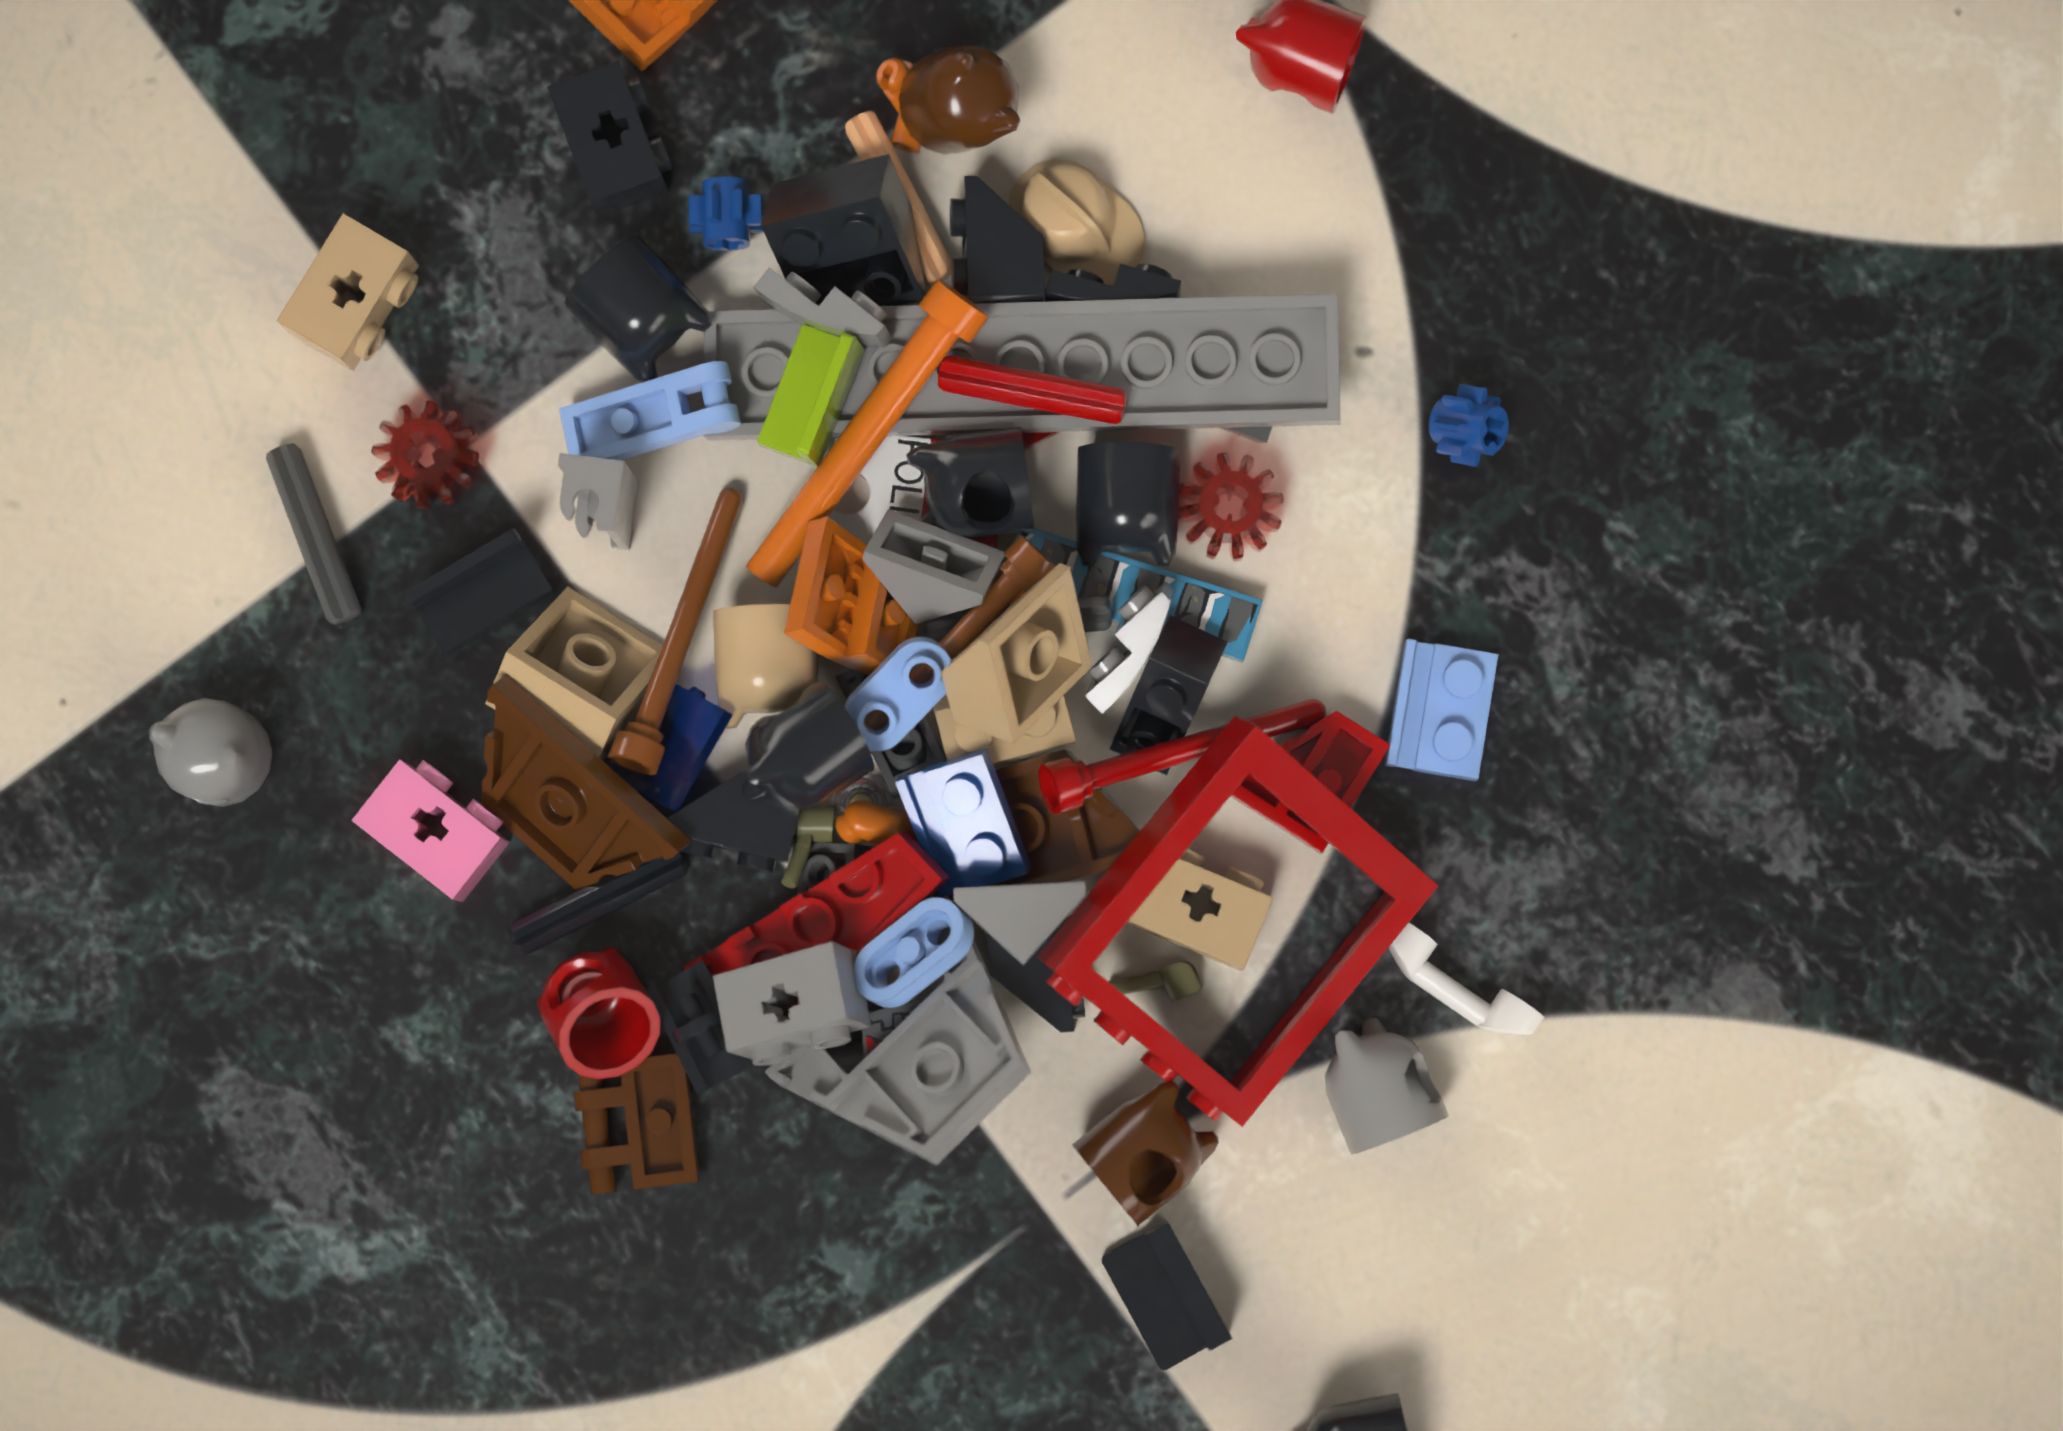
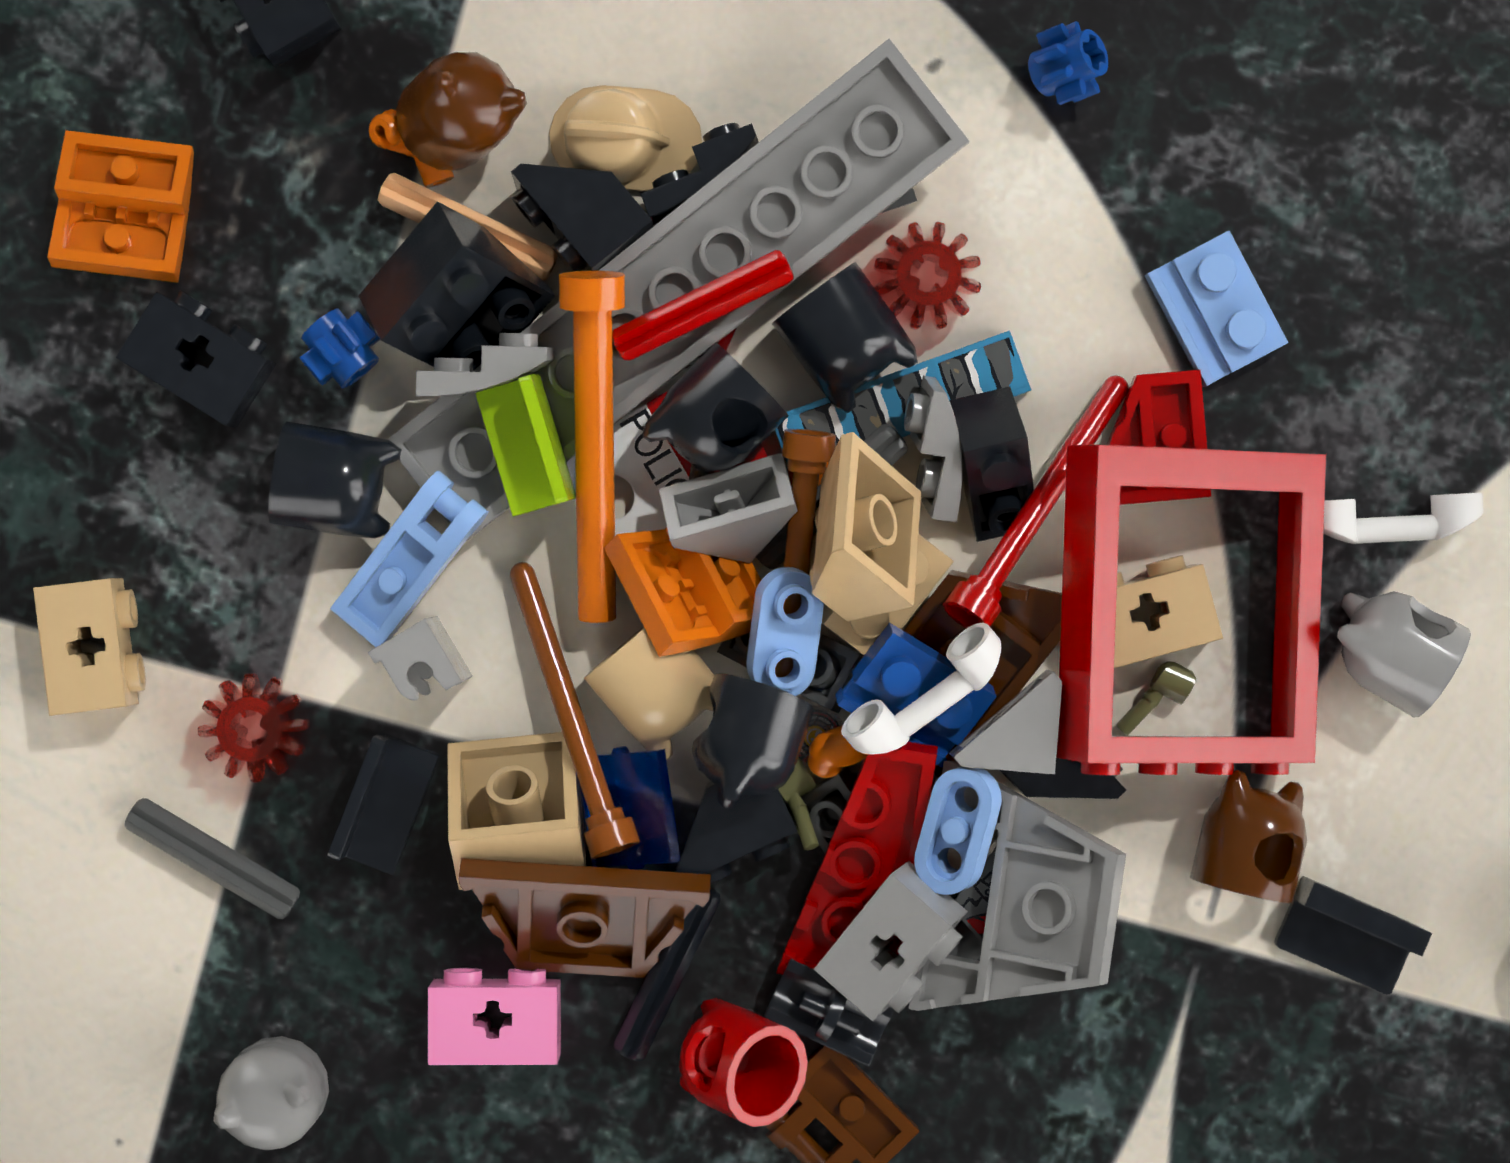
camera: 35 degrees left, 5 degrees up
(911, 824) = (878, 731): none -> white bar

